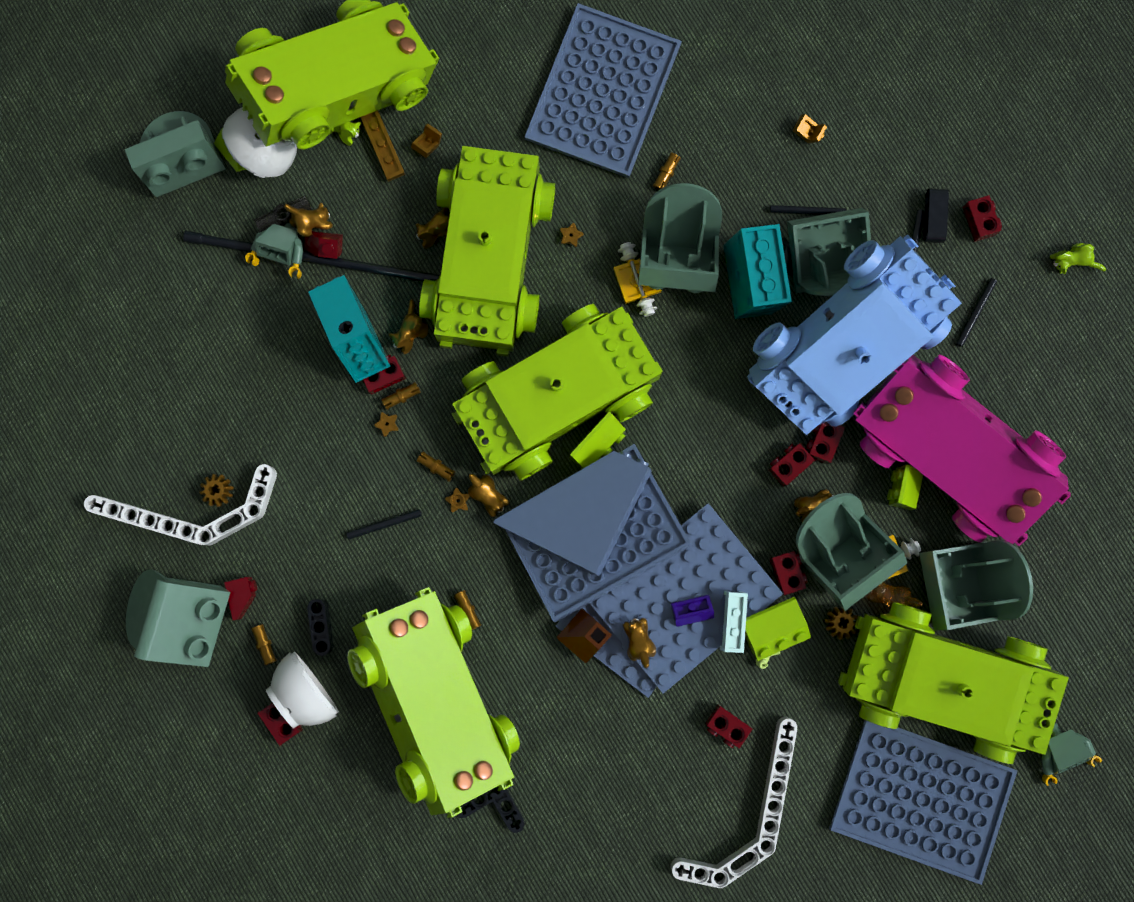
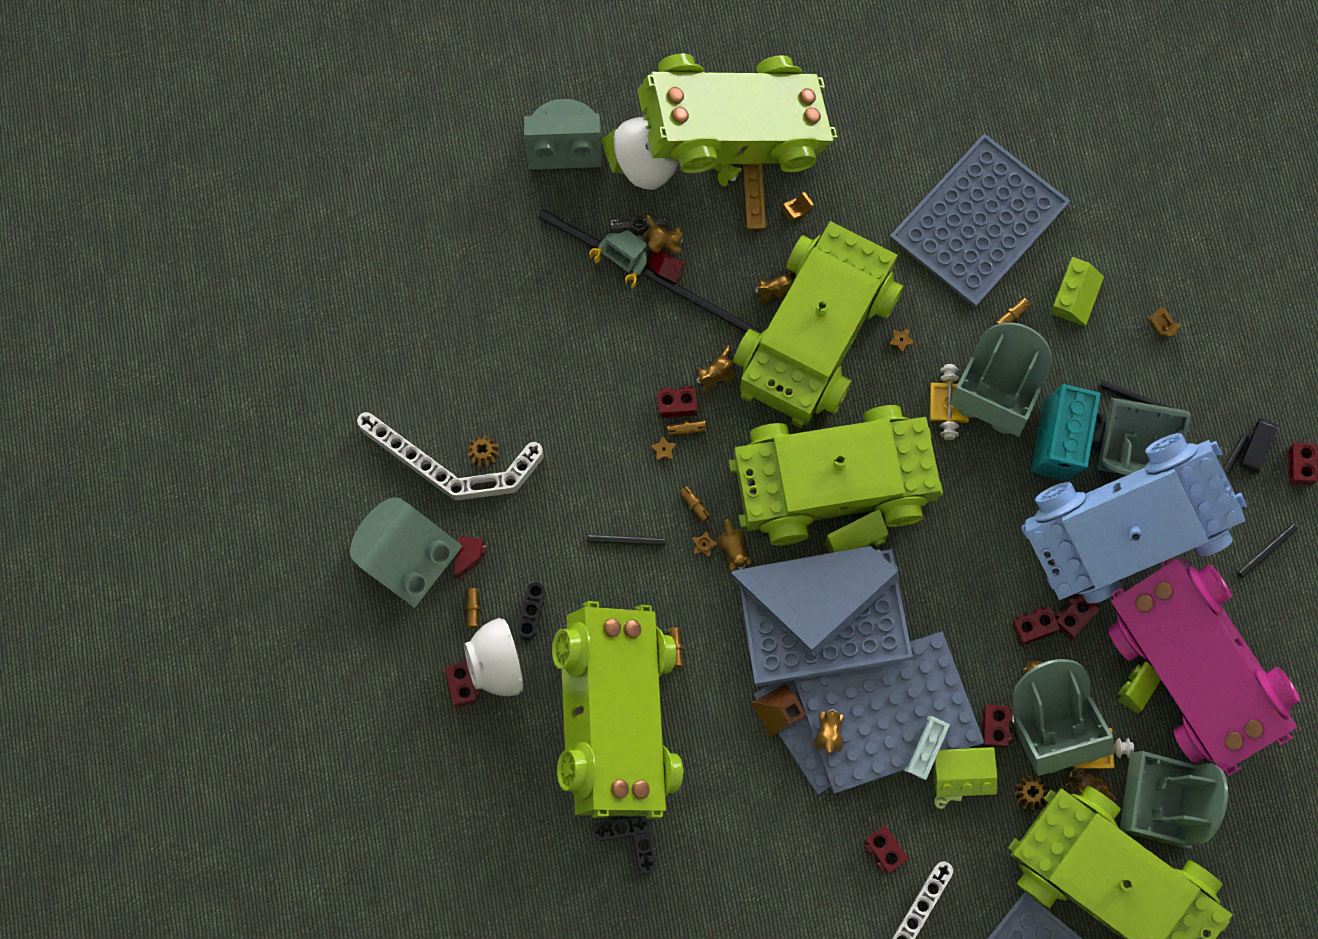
camera: 20 degrees right, 10 degrees down
(349, 328) = (665, 347): teal gear -> none
(692, 610) = (891, 724): dark purple slope -> none
(719, 128) = (1077, 292): none -> lime slope

